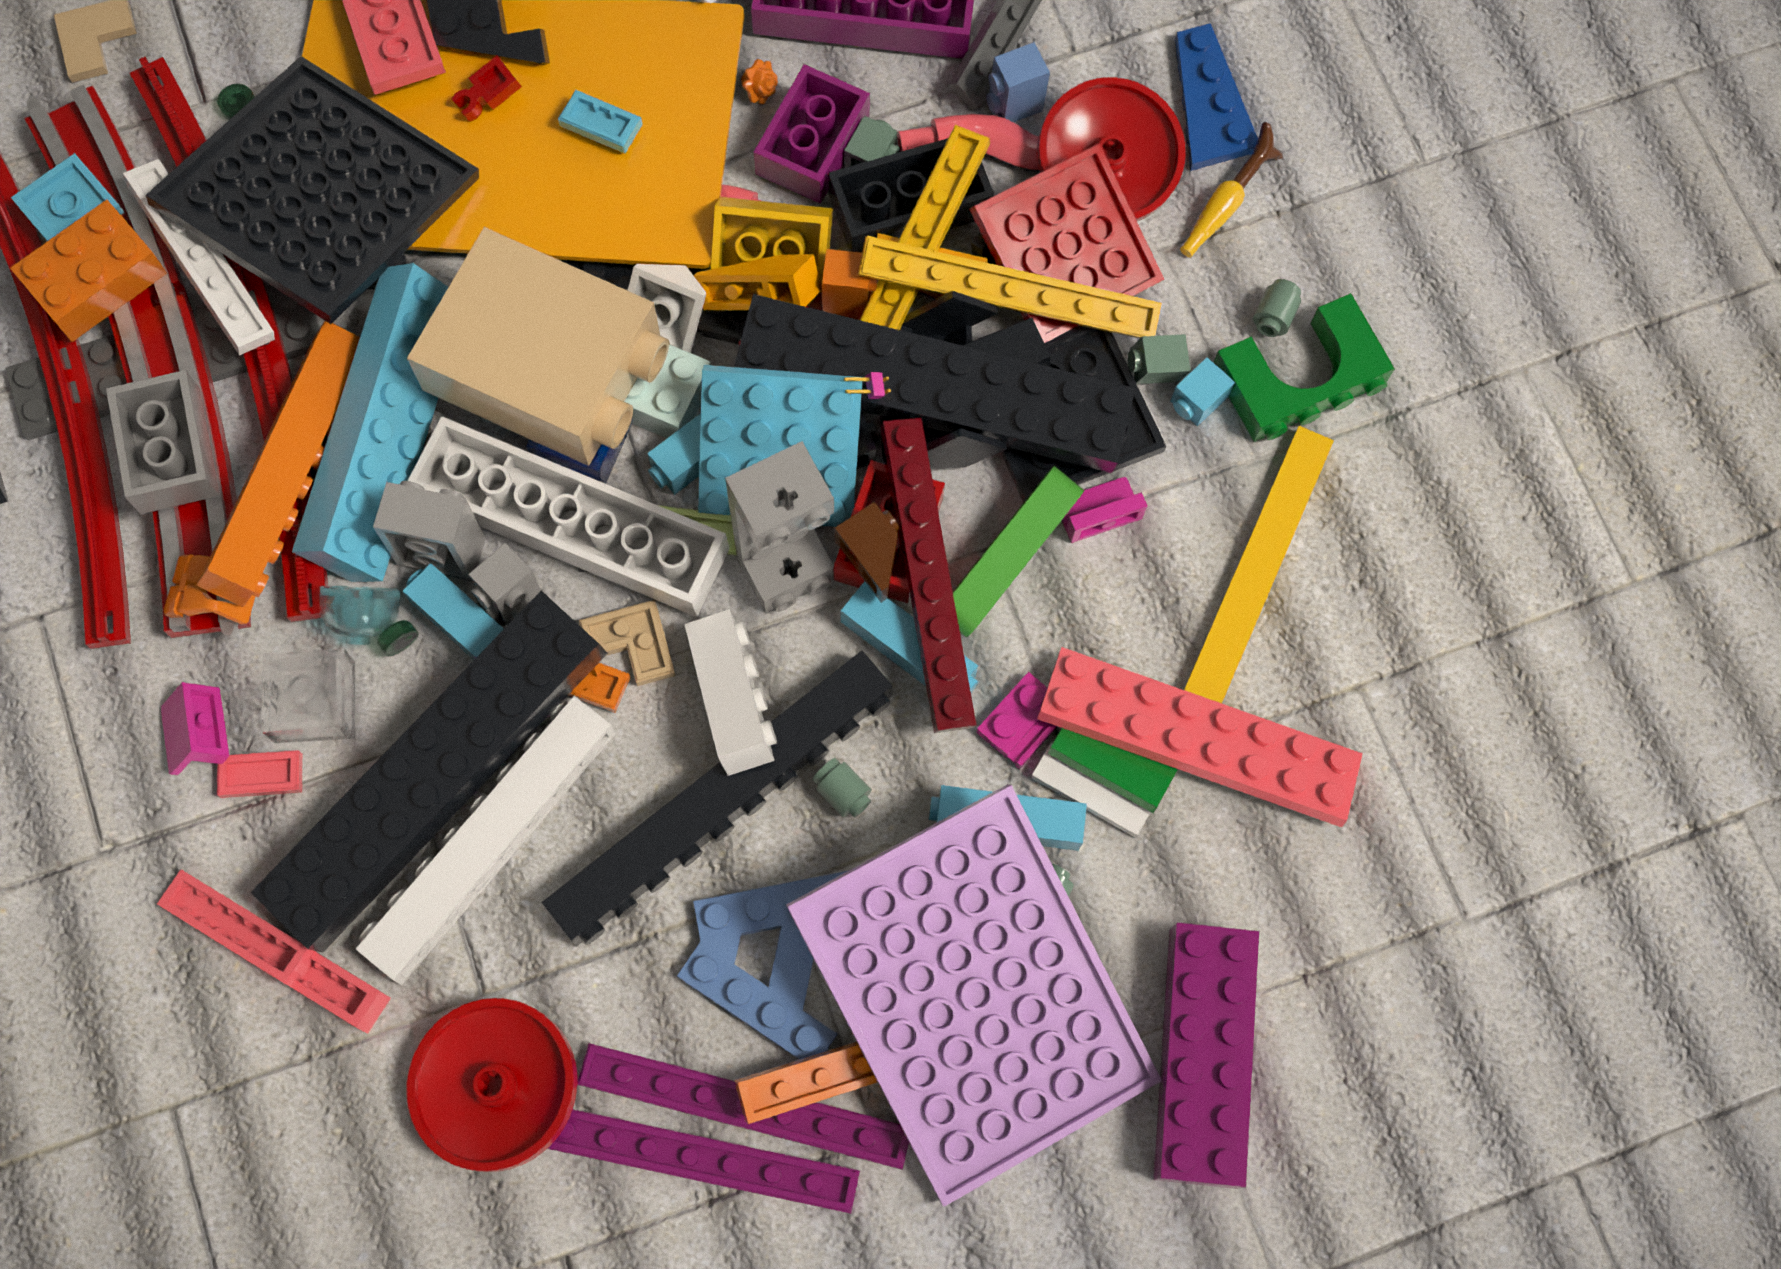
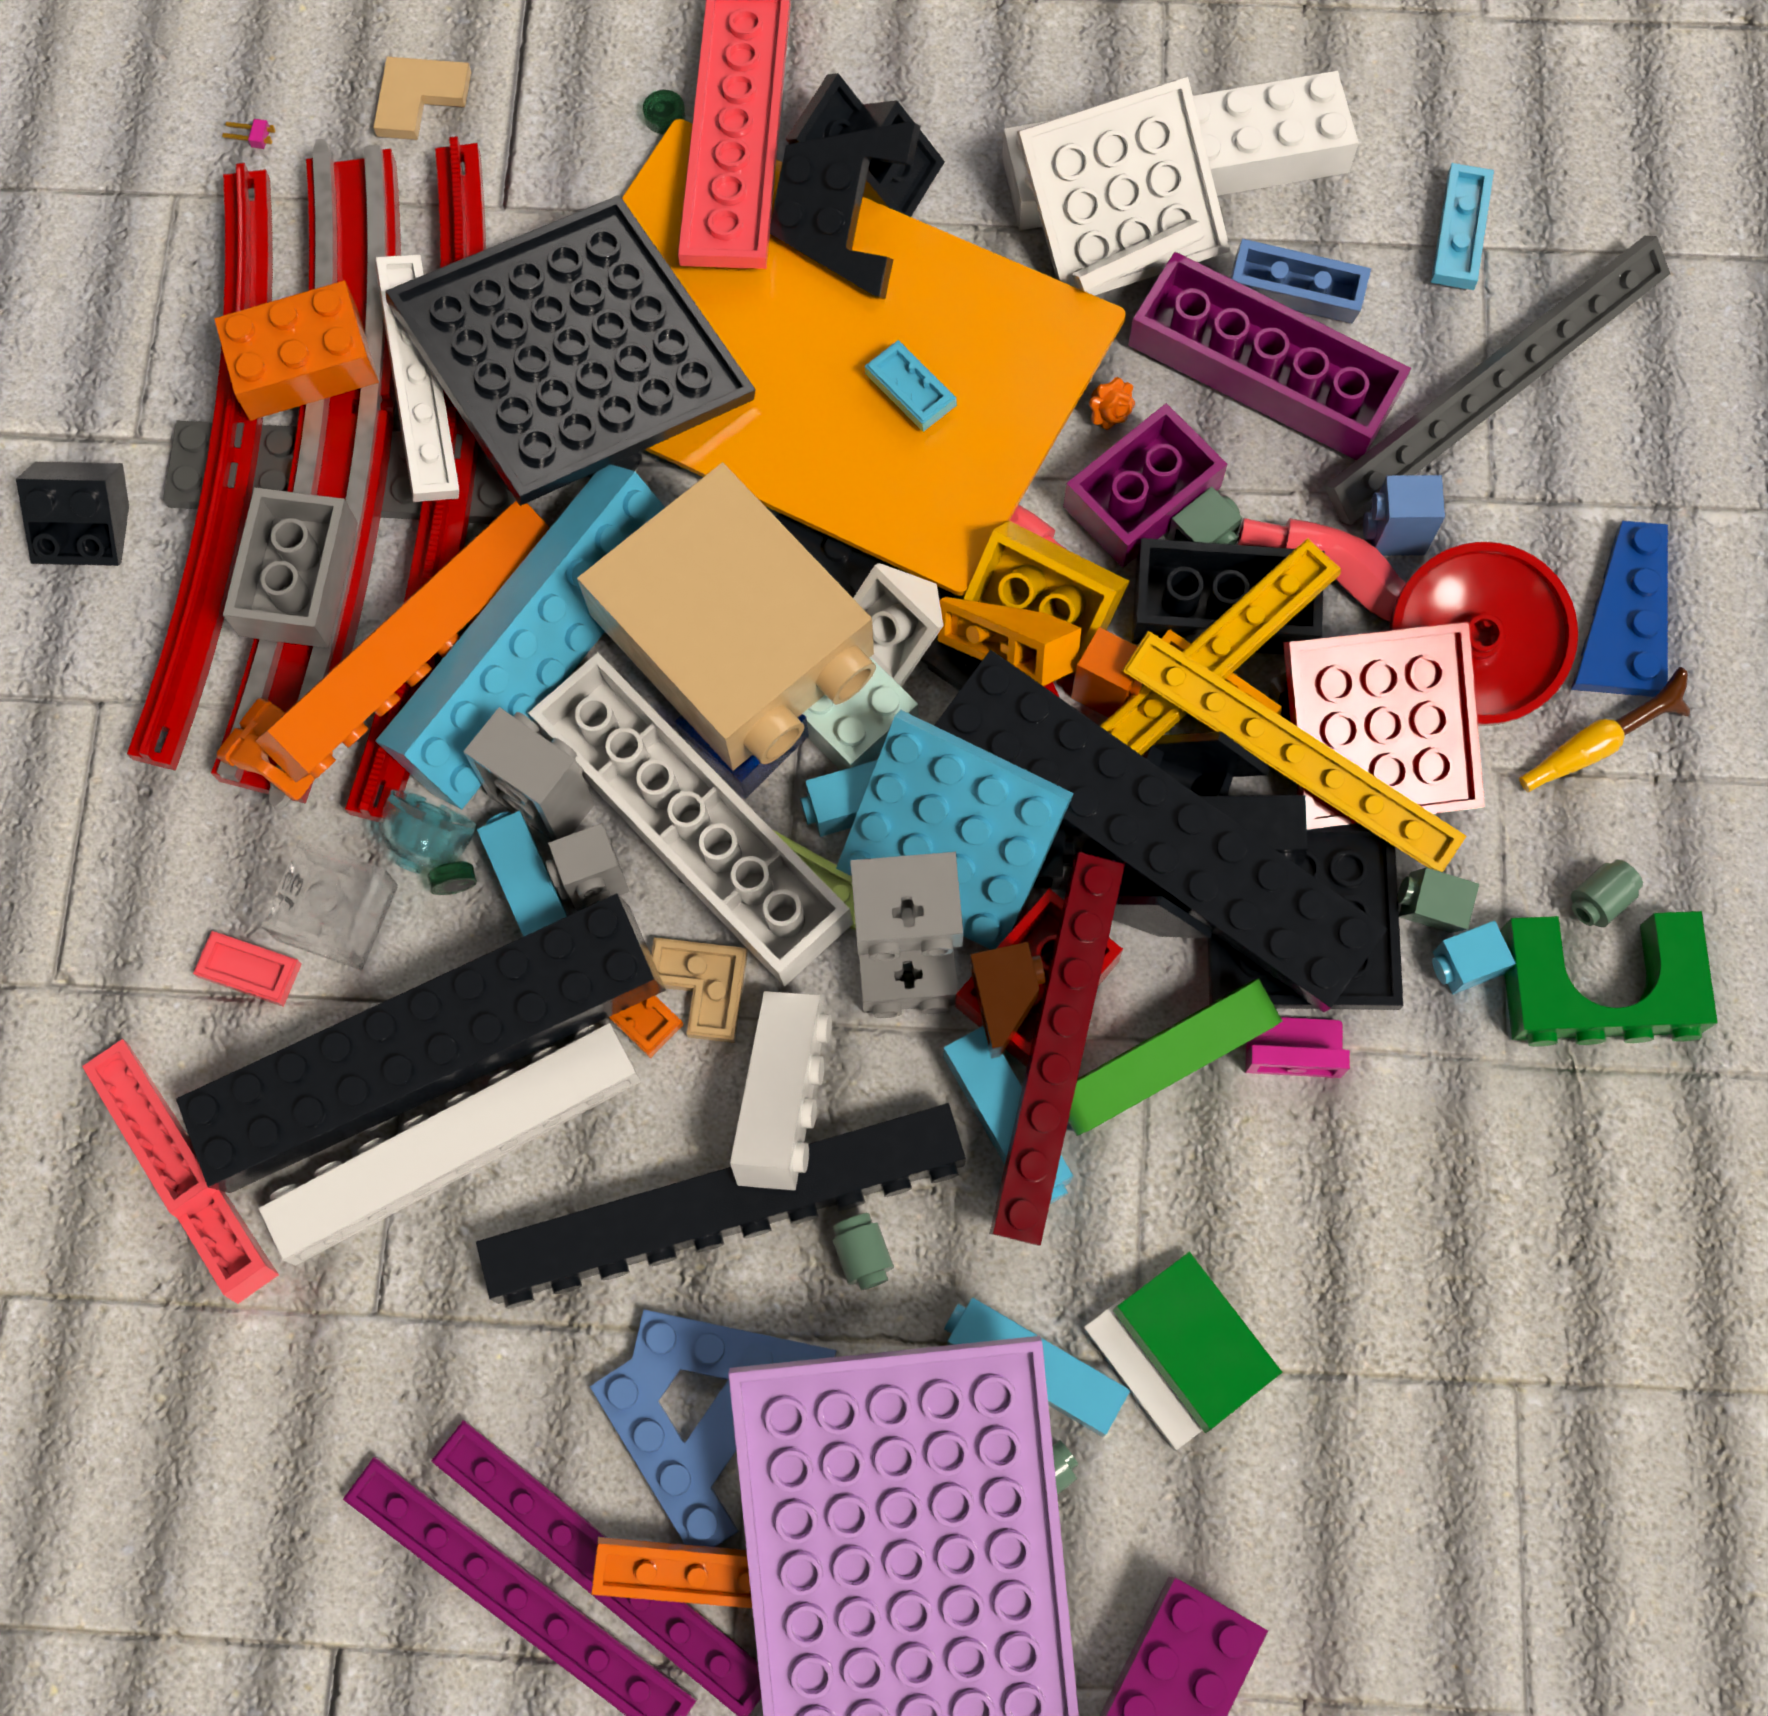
camera: 30 degrees right, 0 degrees up
(62, 197) = (305, 260): medium azure plate -> none
(194, 727) = (200, 890): dark pink panel -> none
(233, 99) = (533, 215): clear green tile -> none
(491, 84) = (809, 303): red plate -> none
(491, 1085) = (337, 1424): red dish -> none
(874, 384) = (1083, 807): dark pink piece -> none
(1014, 722) = (1102, 1258): dark pink plate -> none
(1201, 737) = (1302, 1369): coral plate -> none
(1259, 565) = (1453, 1192): yellow tile -> none

